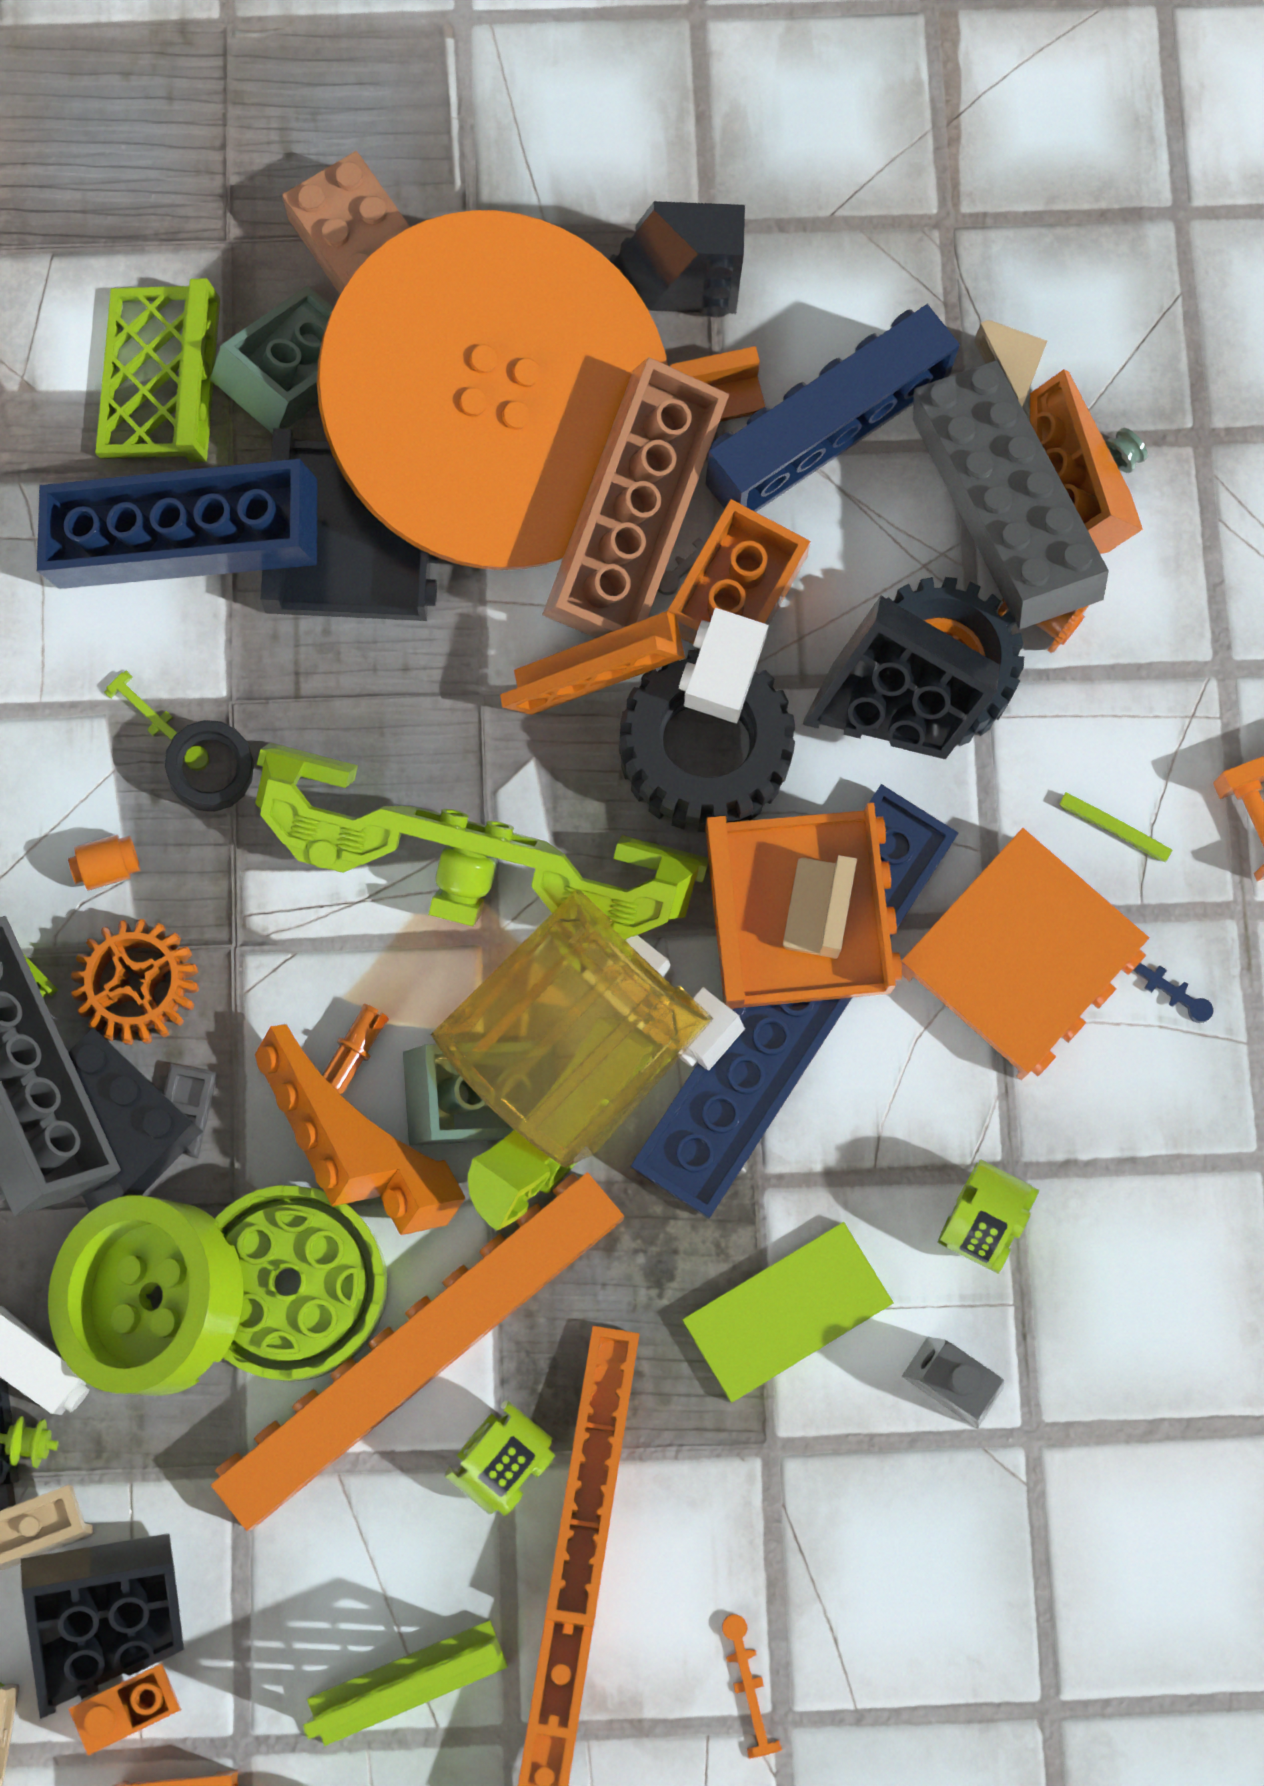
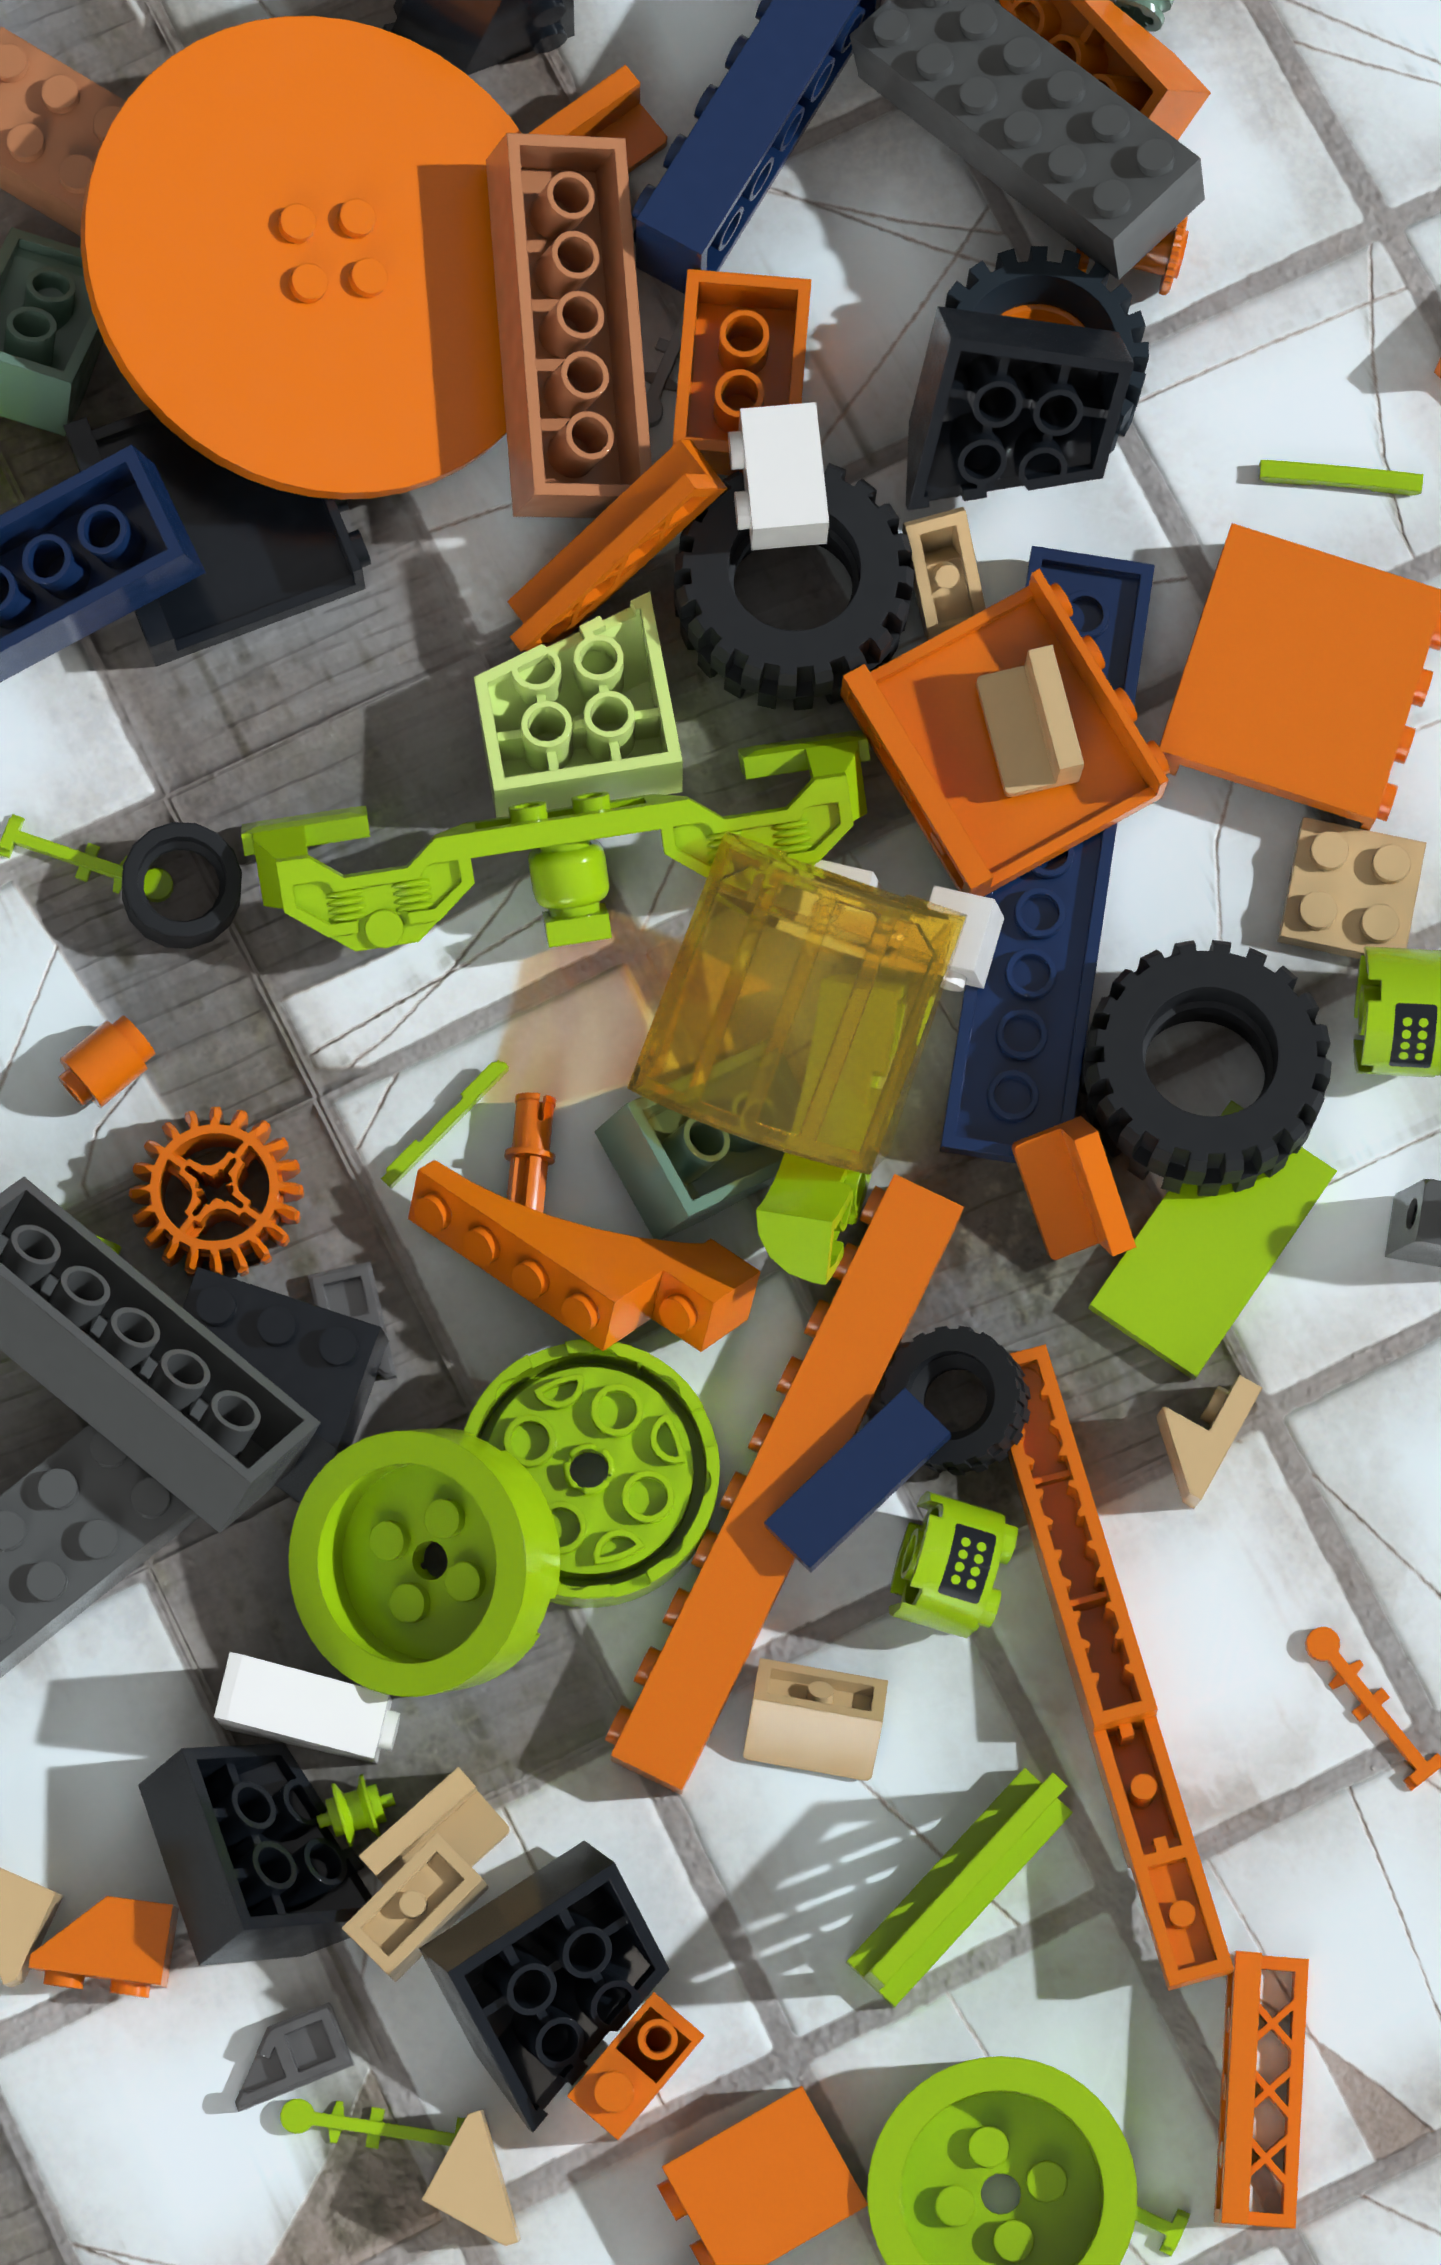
camera: 25 degrees left, 0 degrees up
(92, 1474) = (452, 1811): none -> tan panel
(335, 990) = (469, 1099): none -> lime piece
(364, 1520) = (815, 1719): none -> tan panel
(462, 1372) = (857, 1480): none -> dark blue tile
(523, 768) = (582, 716): none -> yellowish green wedge
(523, 1334) = (1004, 1386): none -> black tyre
(704, 1236) = (1072, 1190): none -> orange panel
(709, 1458) = (1198, 1452): none -> tan slope
(812, 774) = (944, 570): none -> tan slope
(866, 1141) = (1221, 991): none -> black tyre
(993, 1113) = (1350, 889): none -> tan plate

